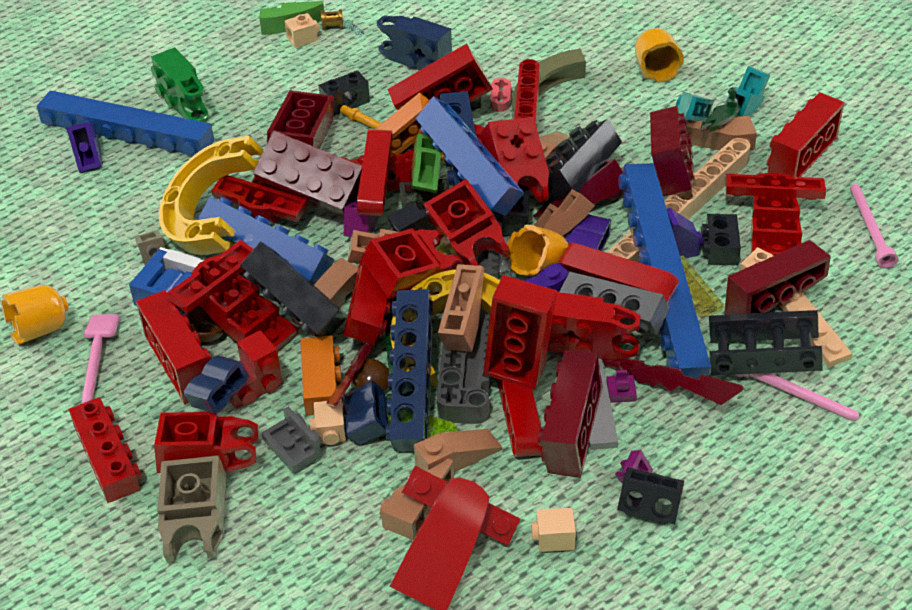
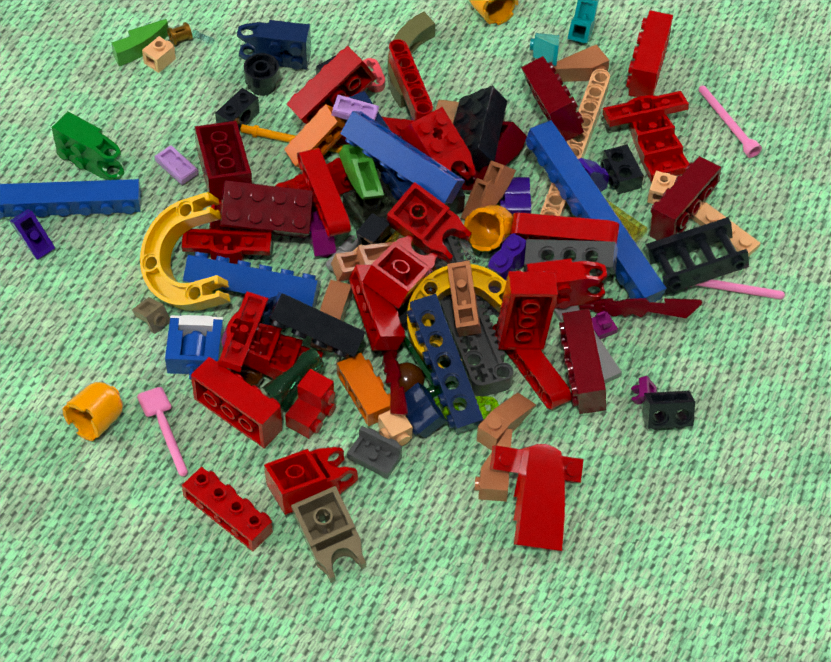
camera: 25 degrees left, 10 degrees up
(216, 384) = (297, 426): dark blue brick -> none
(225, 342) = (284, 386): none -> clear green piece
(257, 123) = (176, 165): none -> lavender plate
(386, 65) = (261, 73): none -> black piece
(459, 106) = (344, 106): none -> lavender plate
(554, 530) = (612, 459): light nougat brick -> none
(723, 113) = (574, 47): dark green piece -> none

